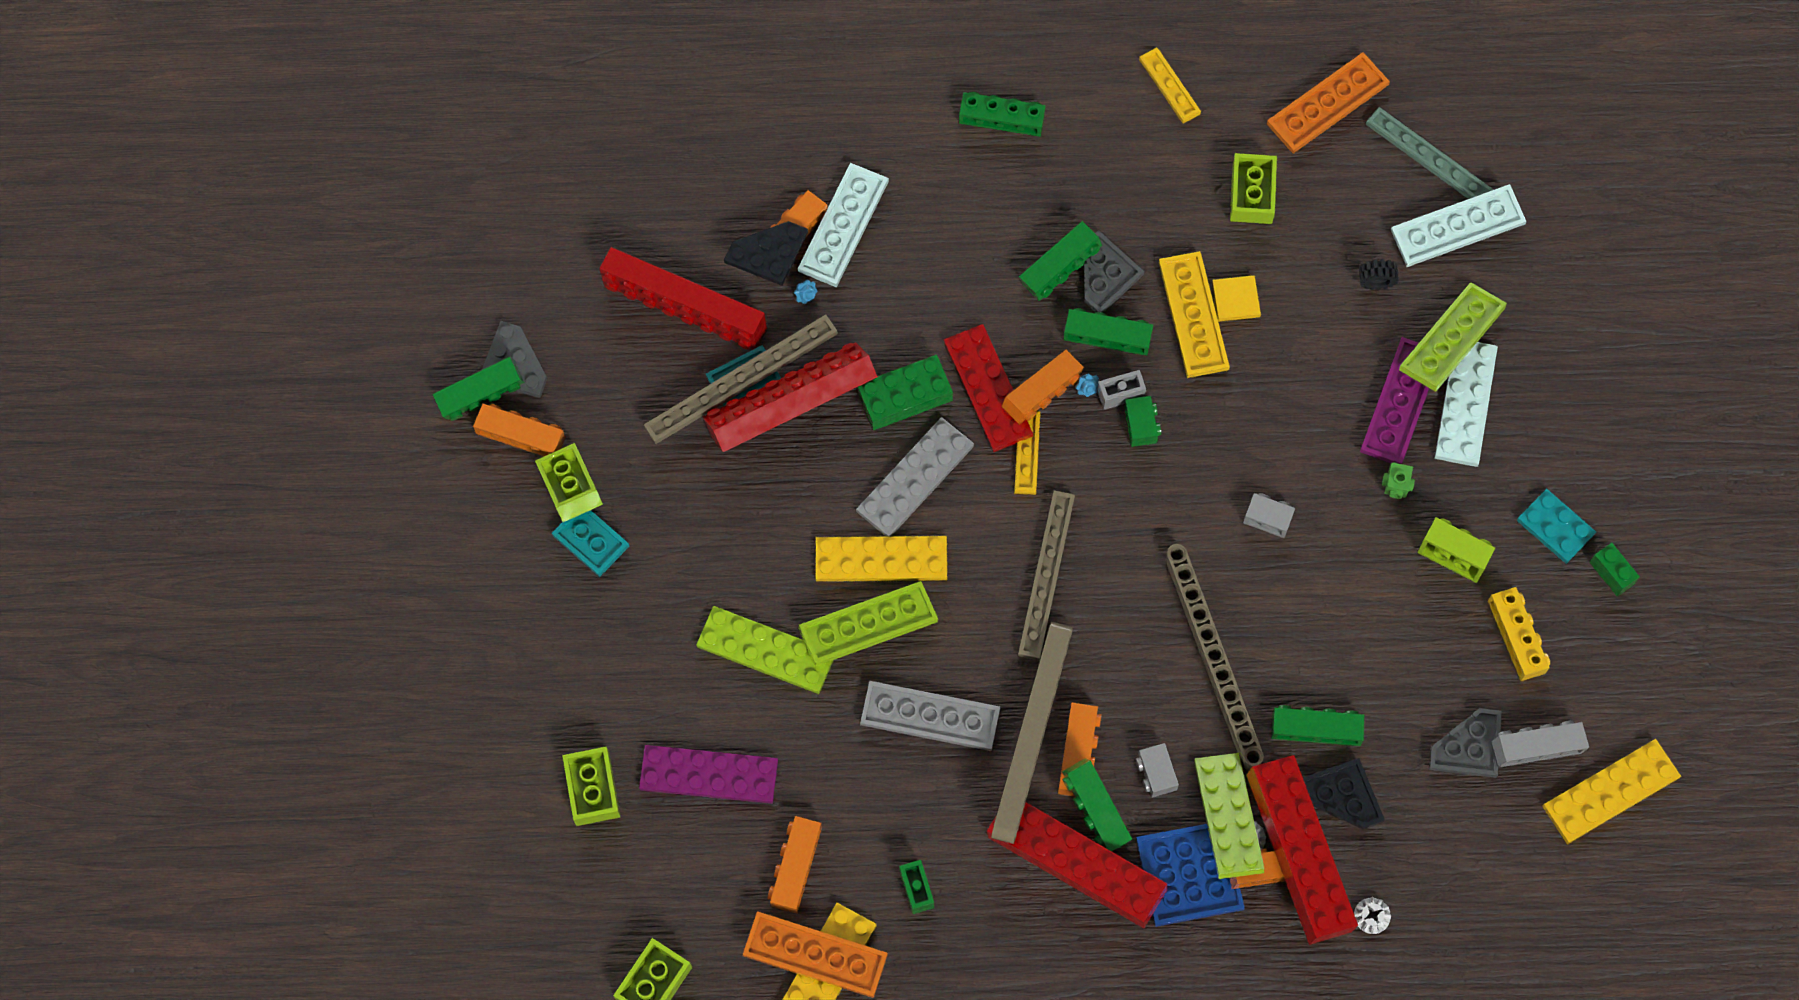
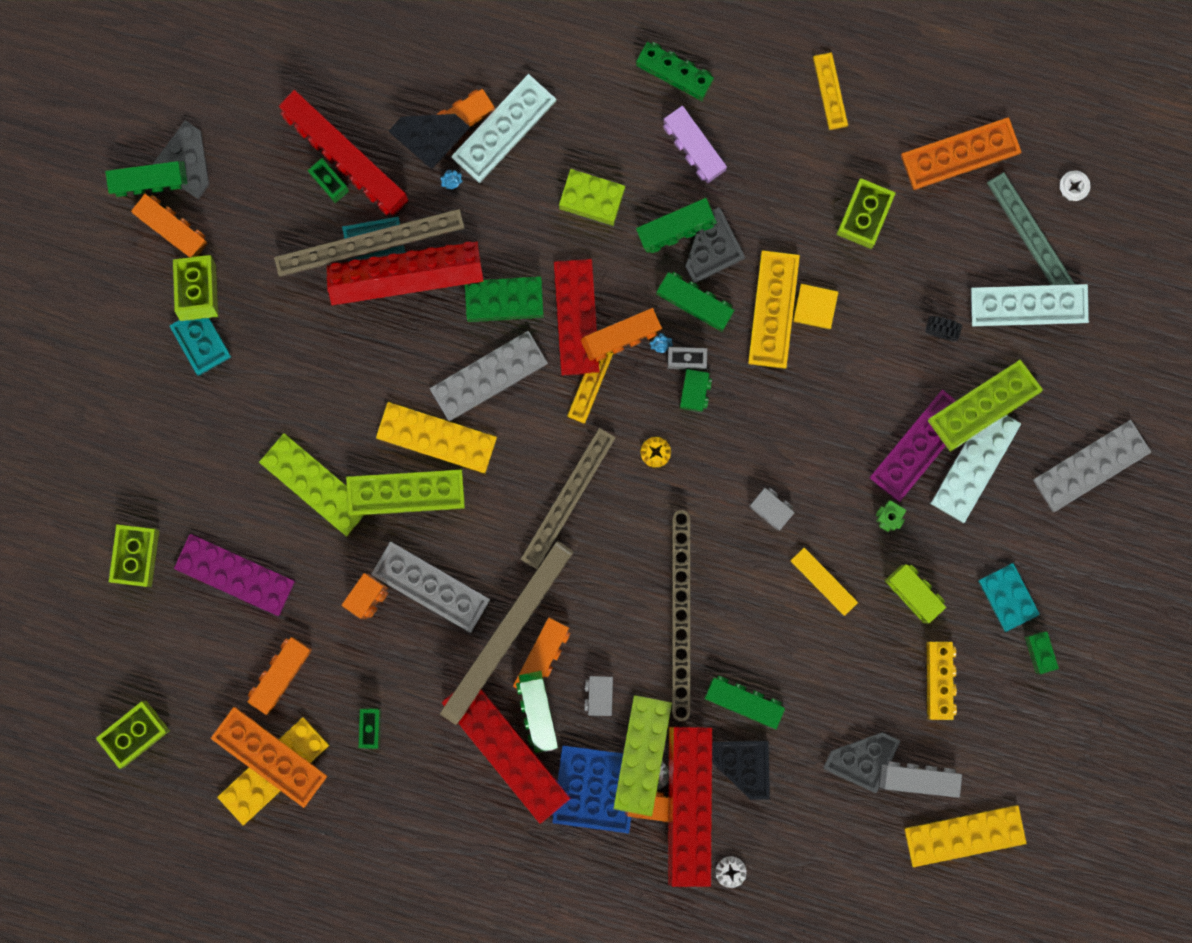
camera: 15 degrees right, 15 degrees up
(675, 331) = (328, 180): none -> green brick
(864, 741) = (365, 597): none -> orange brick
(961, 262) = (592, 197): none -> lime brick
(1049, 178) = (694, 144): none -> lavender brick
(1126, 506) = (646, 452): none -> yellow gear
(1353, 573) = (824, 581): none -> yellow tile
(1451, 91) = (1083, 188): none -> white gear
(1588, 365) = (1091, 466): none -> light grey plate

